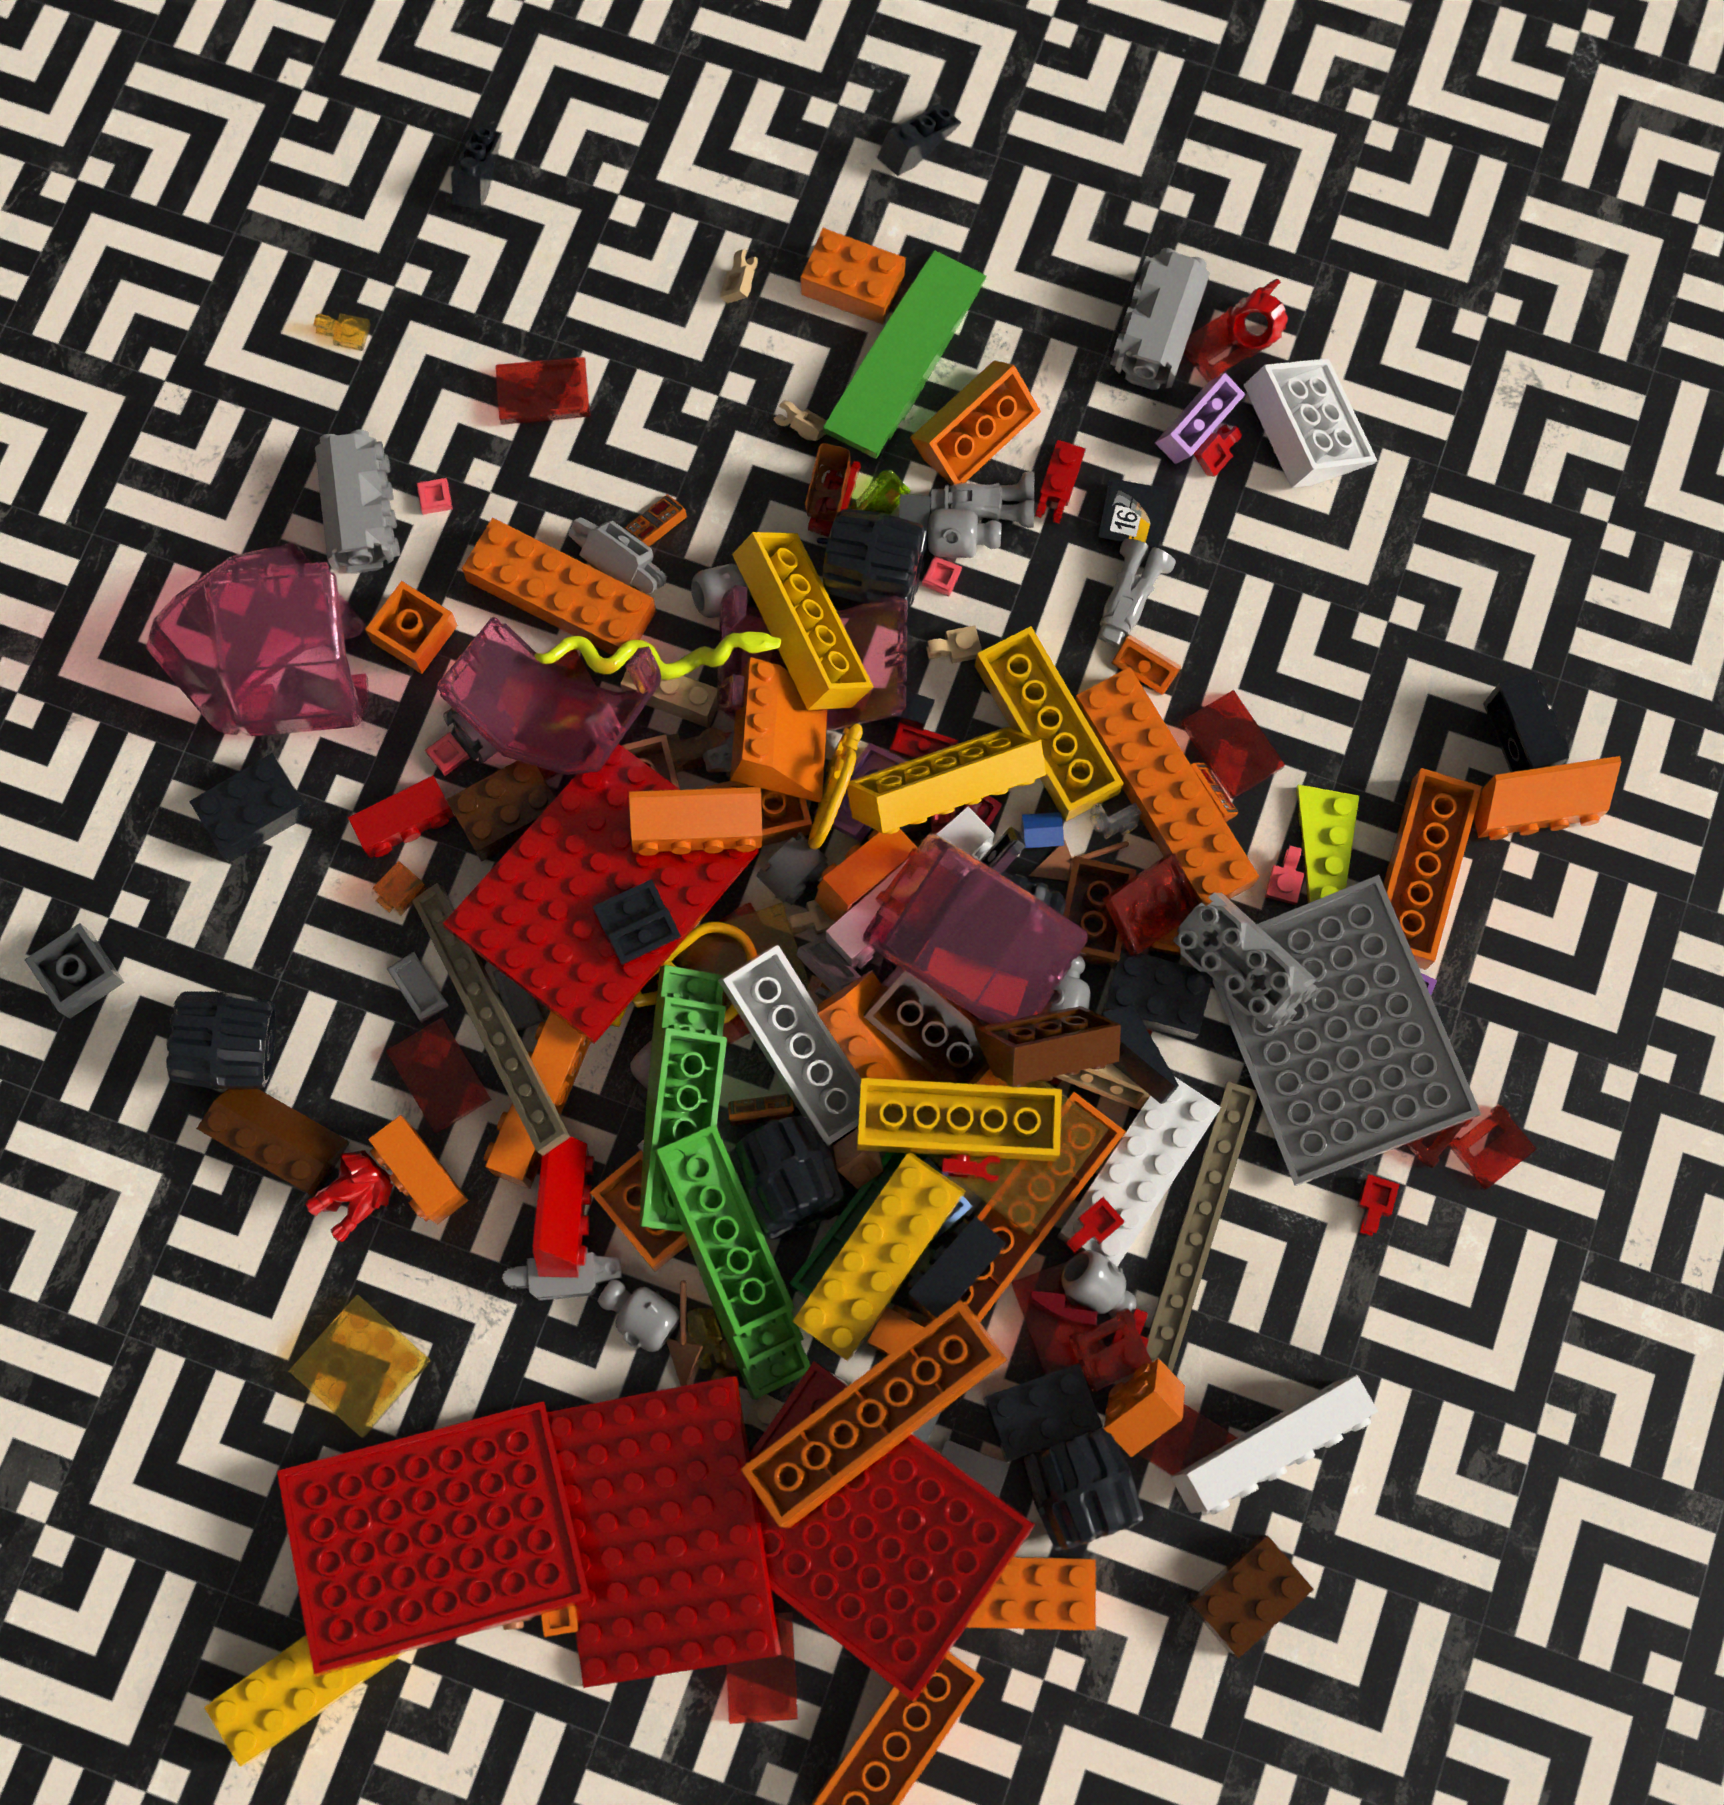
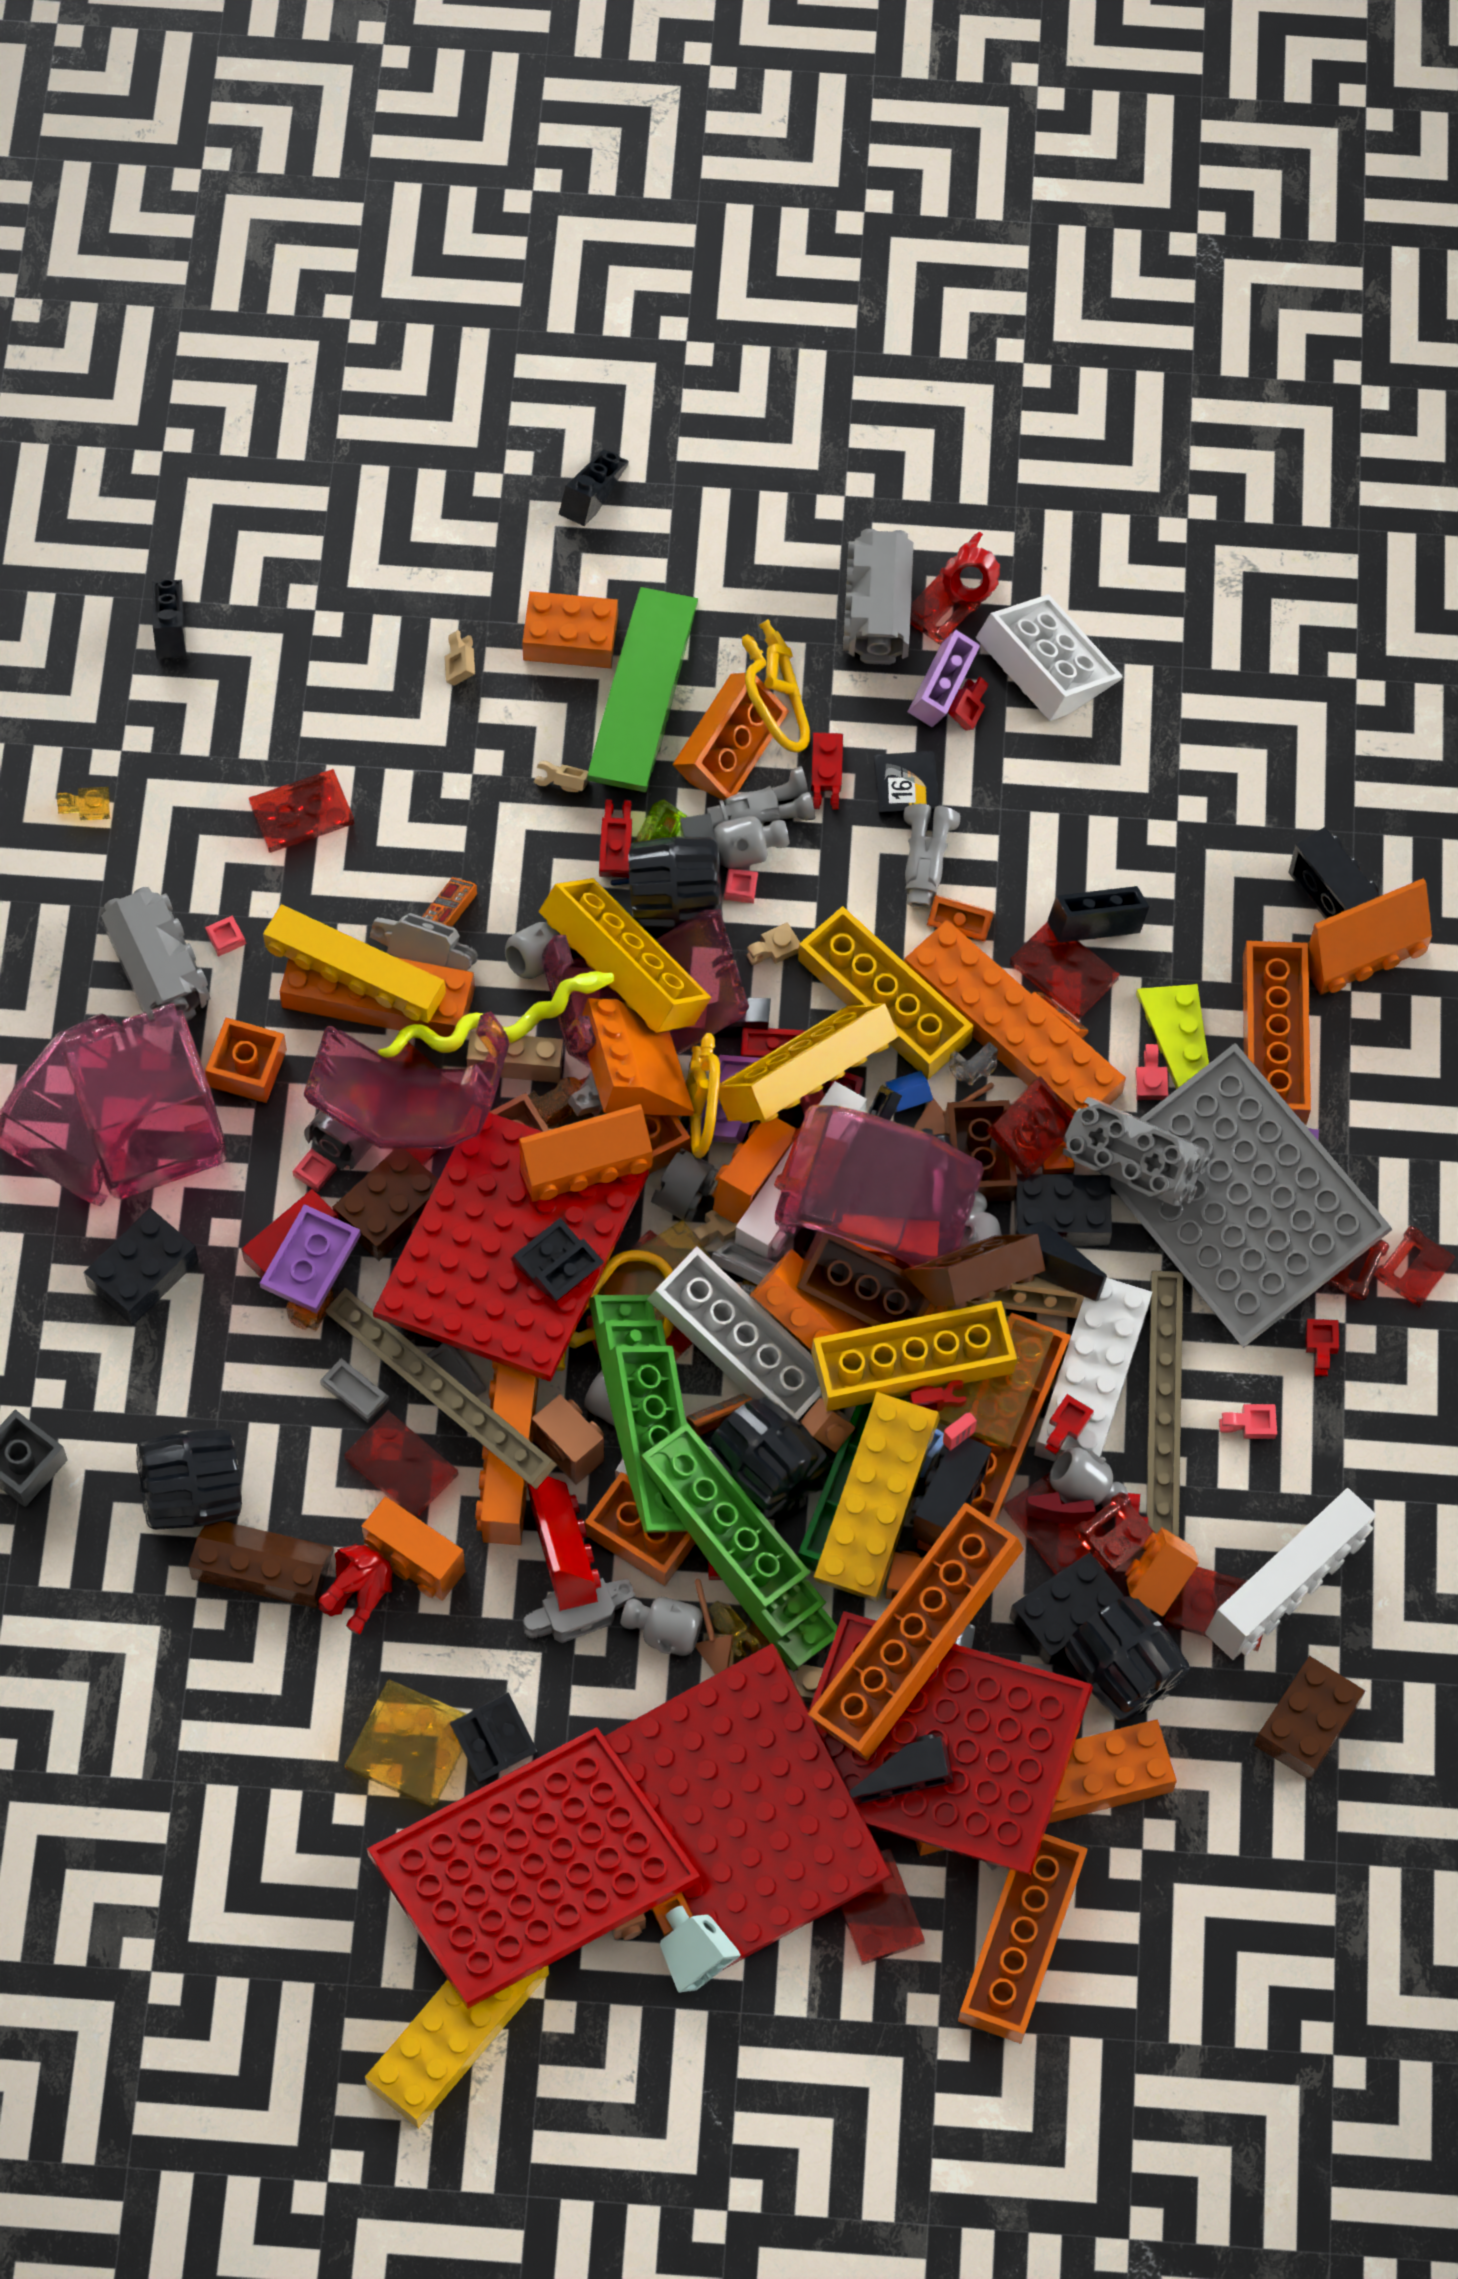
camera: 15 degrees left, 10 degrees down
(407, 847) = (310, 1258): none -> medium lavender plate
(440, 1383) = (493, 1737): none -> black slope
(537, 561) = (354, 964): none -> yellow brick
(567, 1665) = (695, 1949): none -> light aqua torso
(601, 1099) = (568, 1438): none -> nougat brick
(830, 1555) = (911, 1769): none -> black slope
(831, 458) = (609, 801): dark orange piece -> none
(977, 1220) = (959, 1431): none -> coral tile
(1045, 350) = (776, 653): none -> yellow piece
(1281, 700) = (1098, 914): none -> black brick
(1285, 1265) = (1256, 1421): none -> coral plate

